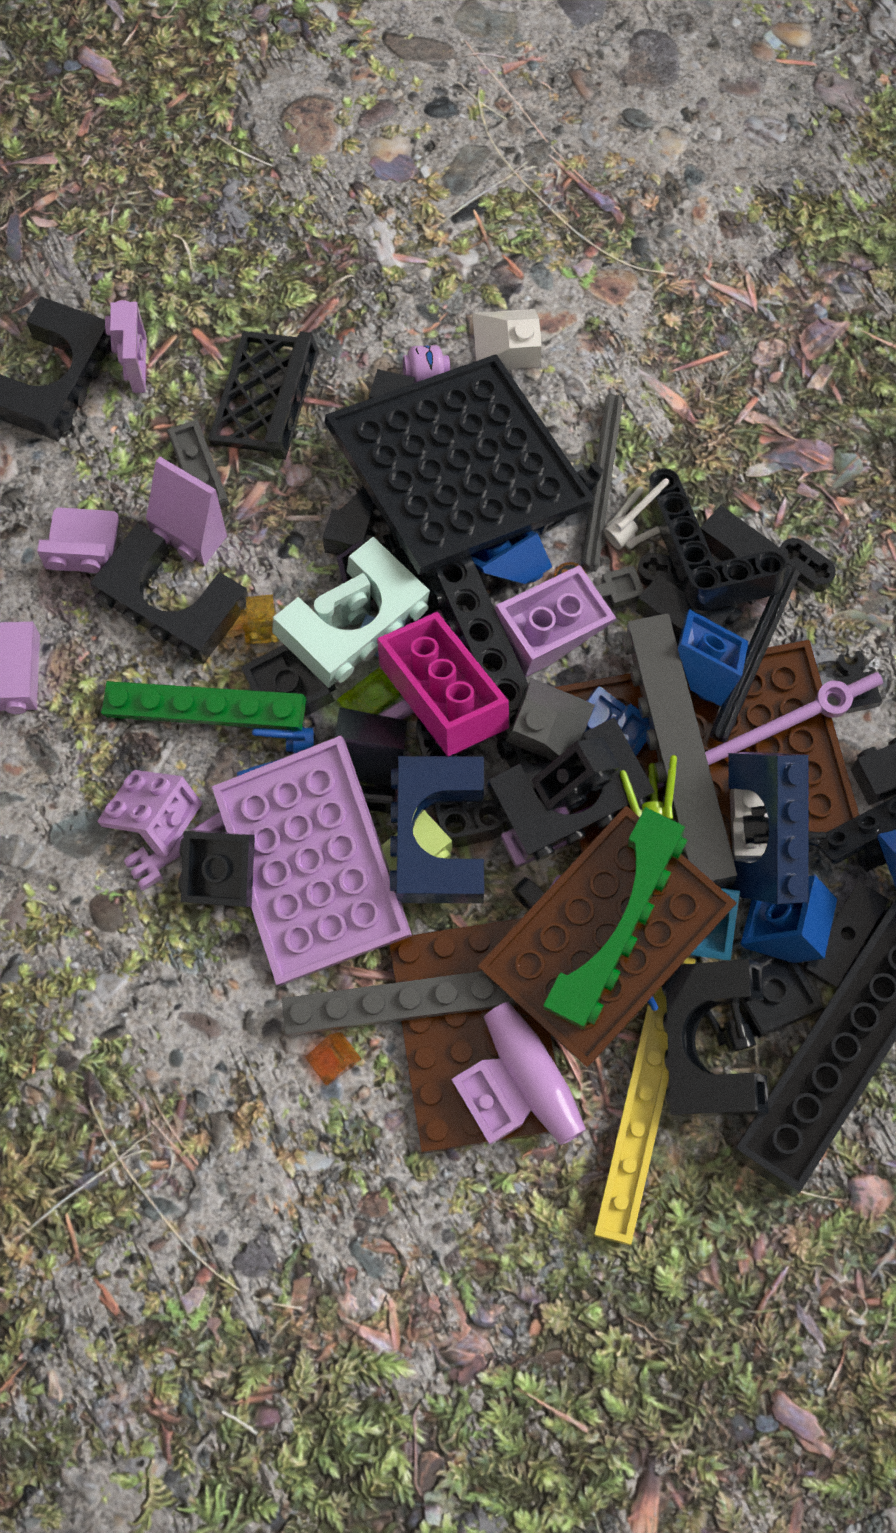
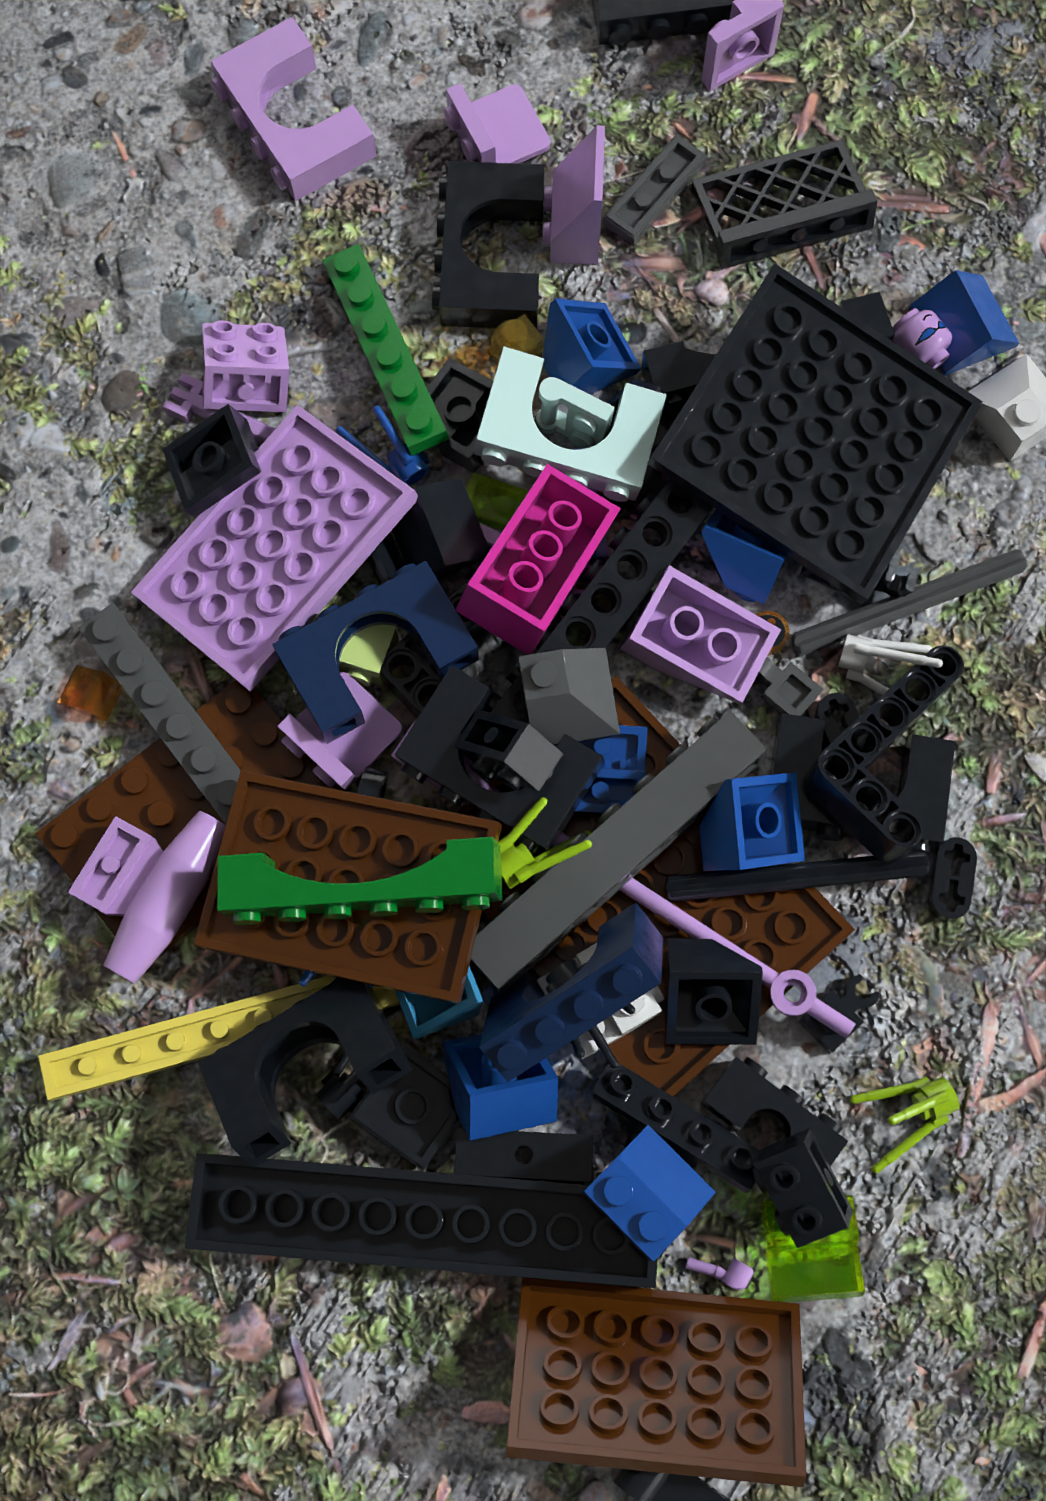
camera: 60 degrees right, 5 degrees up
(291, 573) = (586, 346): none -> blue slope
(425, 327) = (972, 317): none -> blue slope
(498, 900) = (350, 754): none -> lavender bracket
(815, 734) = (710, 994): none -> black slope

